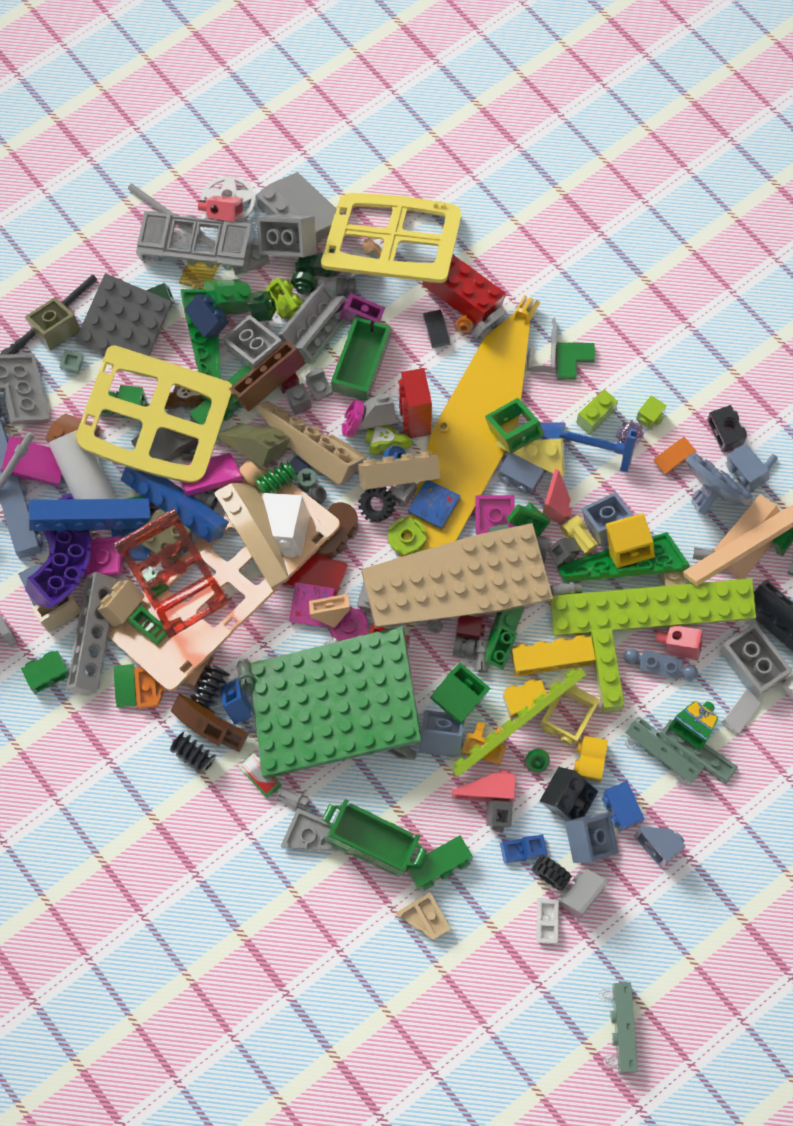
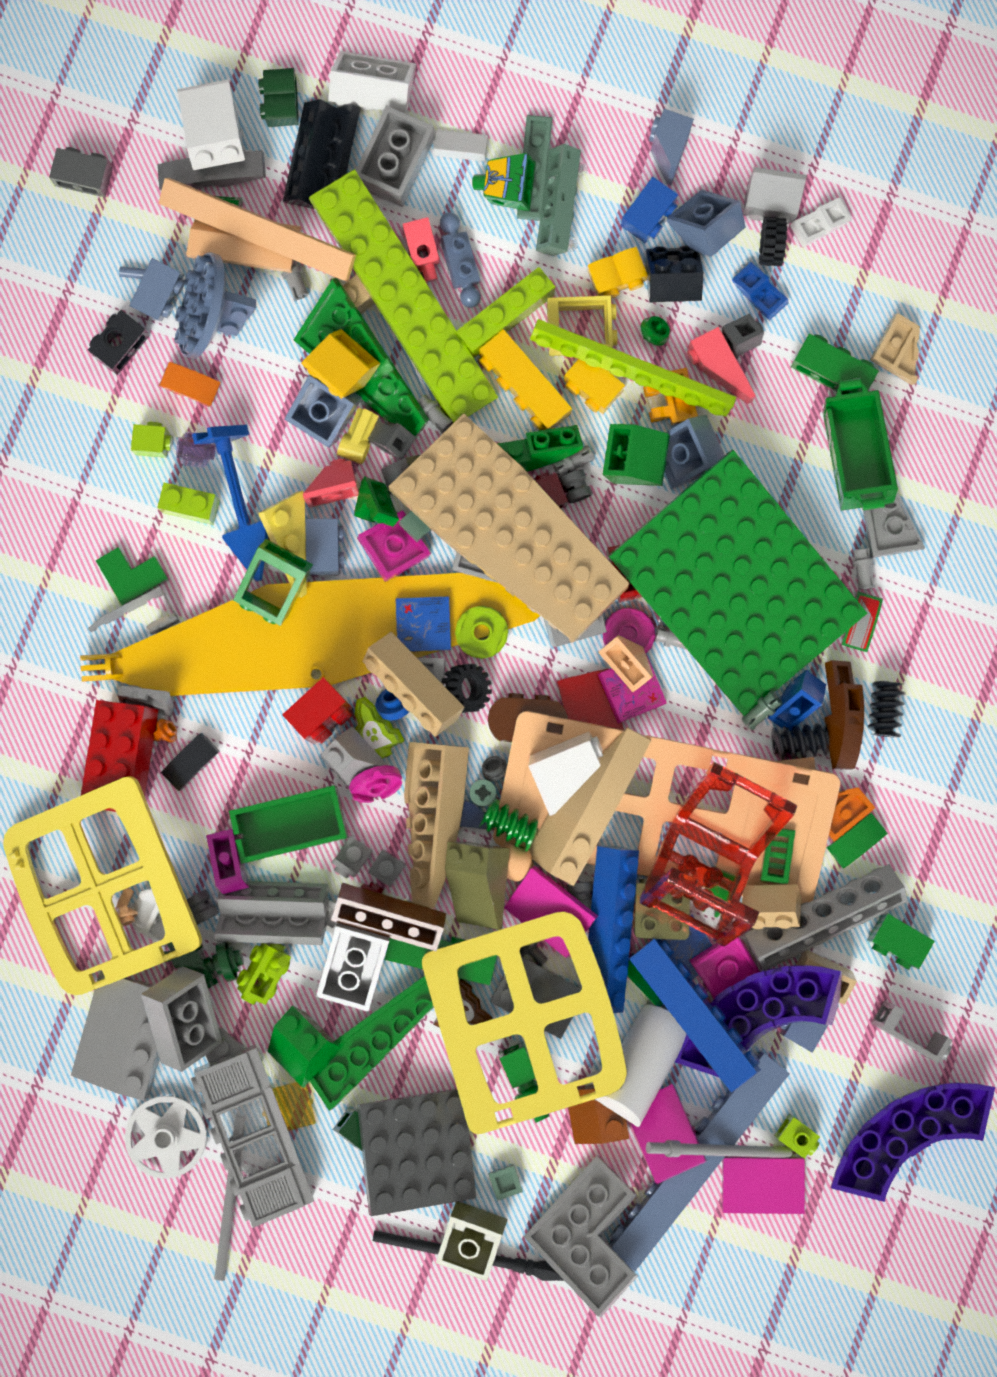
camera: 125 degrees left, 15 degrees up
(206, 315) = (353, 1047): dark blue brick -> none
(222, 208) = (189, 1128): coral torso -> none
(262, 306) = (295, 989): dark green brick -> none
(624, 1035) = (889, 76): sand green piece -> none

